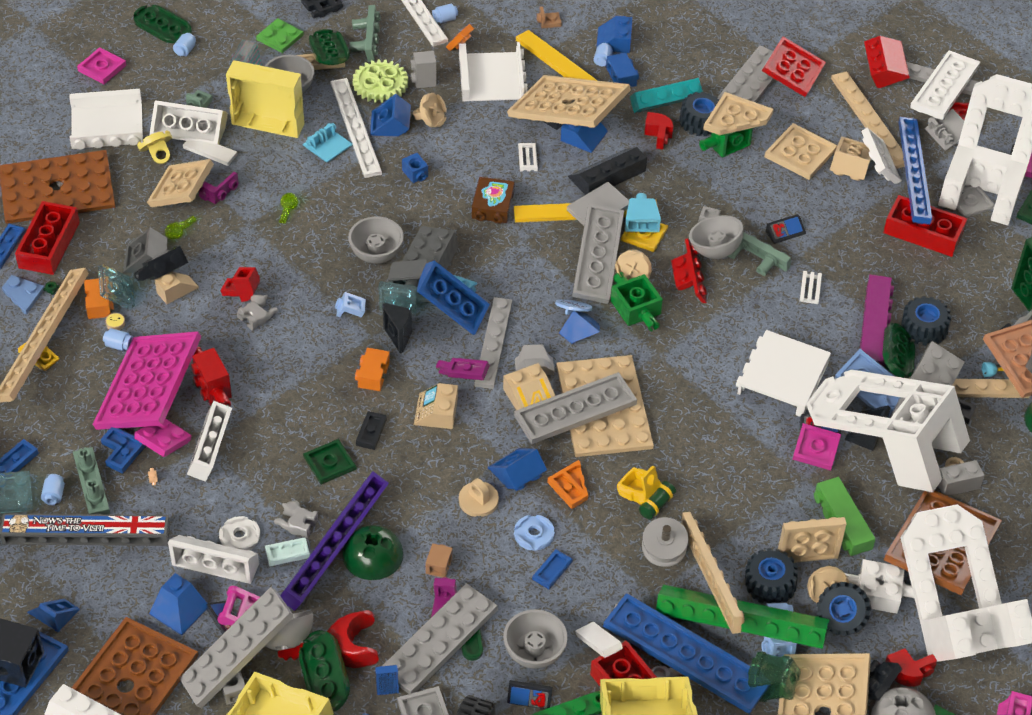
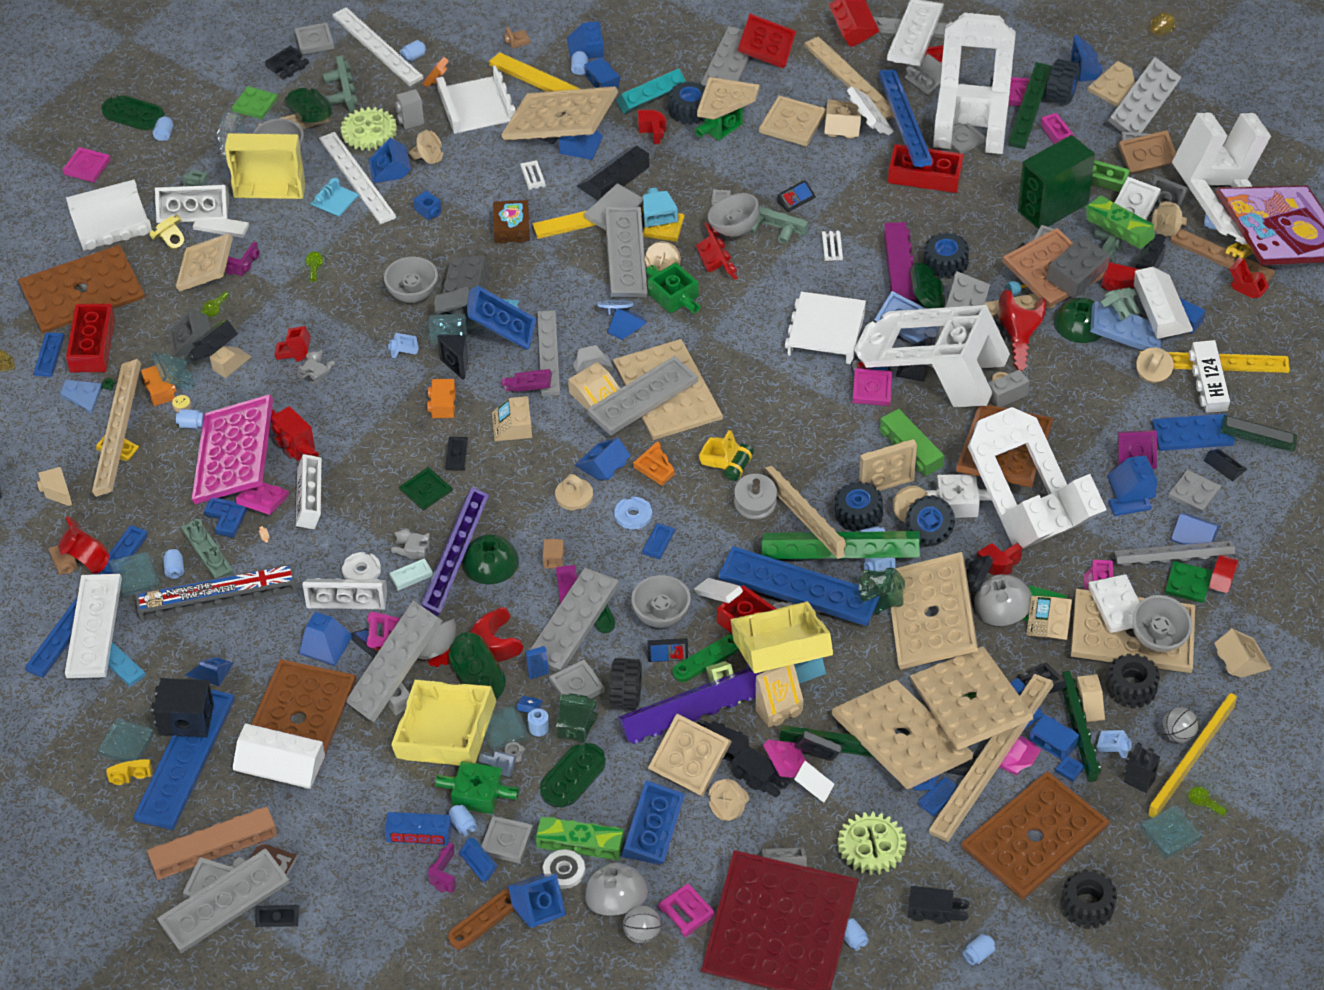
camera: 10 degrees left, 0 degrees up
(987, 411) = (1020, 324): none -> red animal

